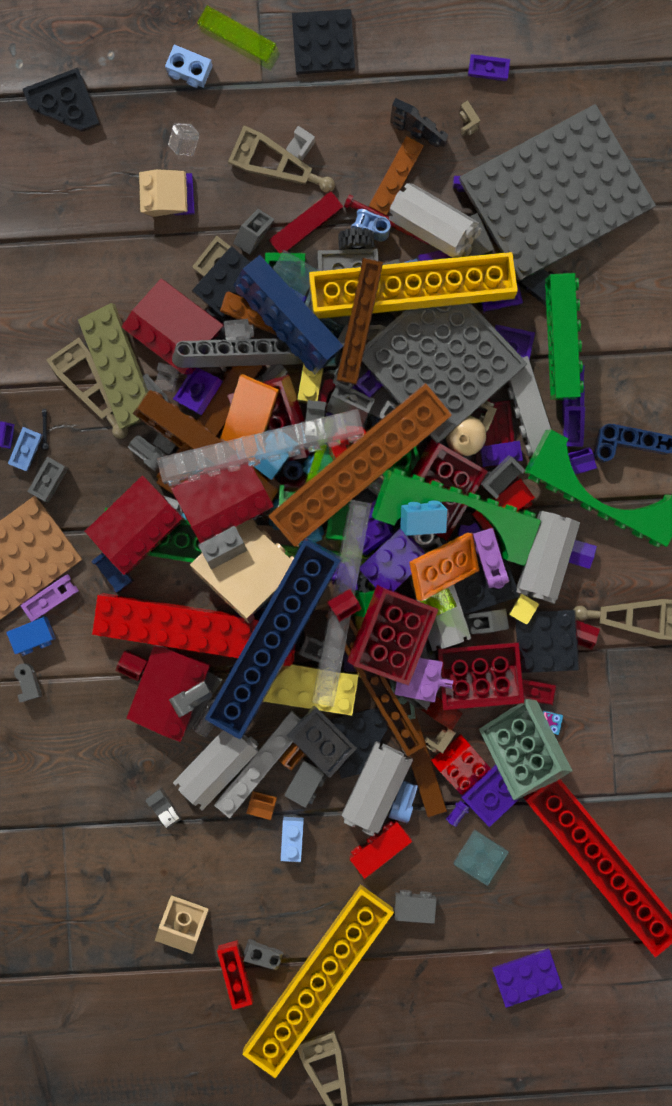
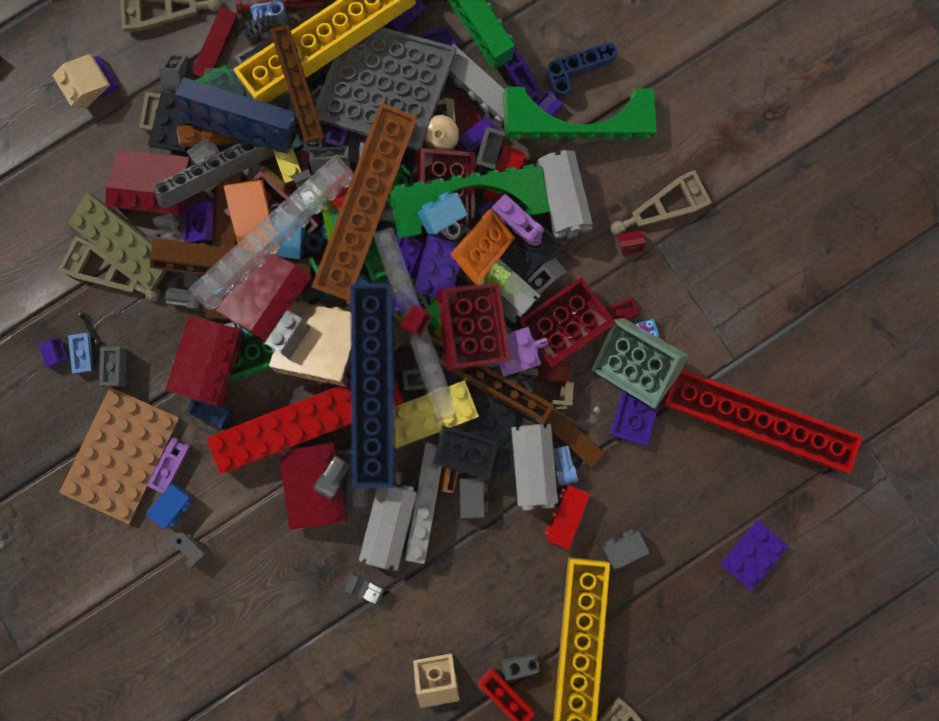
camera: 30 degrees left, 5 degrees down
(131, 665) = (269, 483): dark red piece -> none
(183, 139) = (76, 31): clear panel -> none
(261, 805) = (446, 538): dark orange piece -> none
(292, 839) = (488, 551): light blue brick -> none
(458, 813) = (614, 449): dark purple pin -> none
(461, 764) = (593, 407): red bracket -> none
(480, 857) = (655, 475): clear light blue plate -> none
(523, 609) = (569, 248): light yellow panel -> none
(548, 642) = (605, 263): black plate -> none
(582, 554) = (592, 178): dark purple piece -> none

